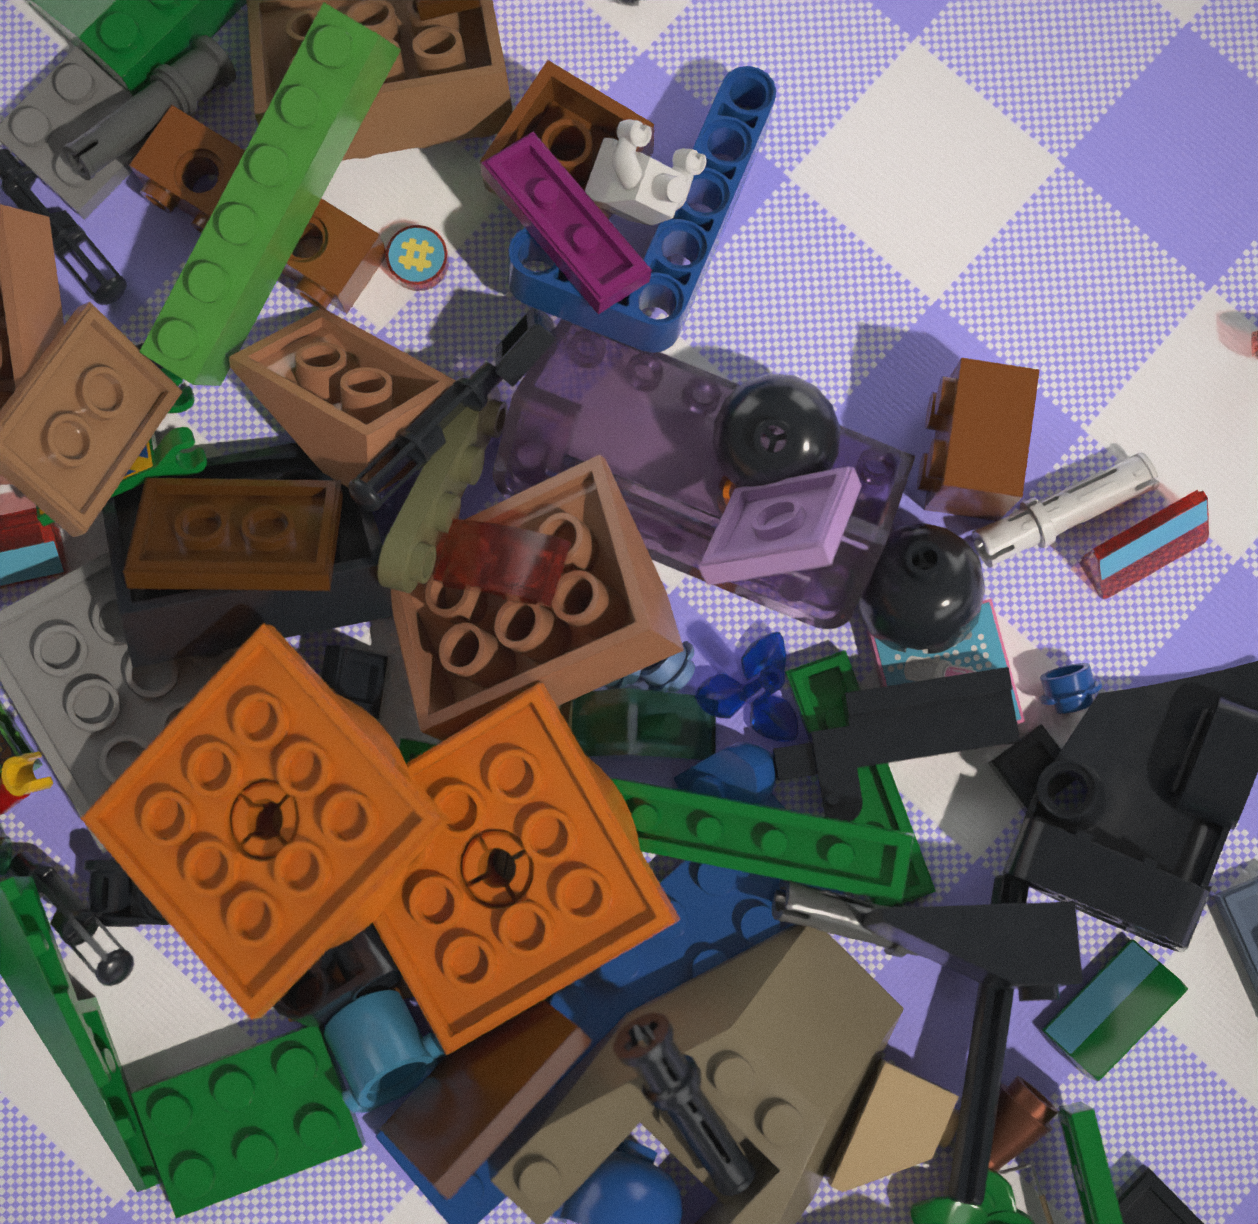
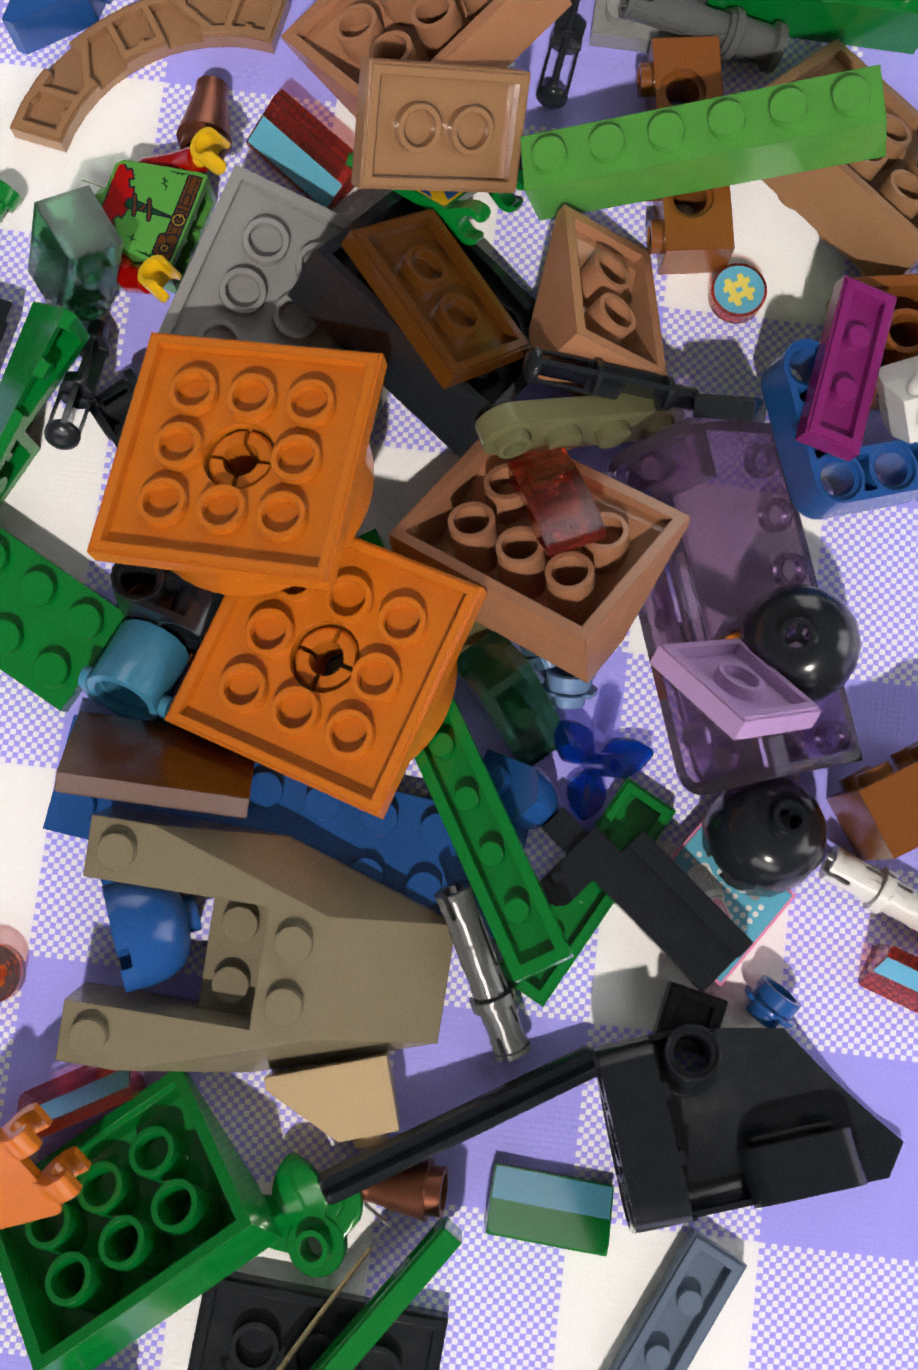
camera: 50 degrees right, 0 degrees up
(355, 676) = (396, 465): black tile -> none
(673, 1085) = (228, 979): black pin -> none
(993, 944) = (533, 1079): black slope -> none

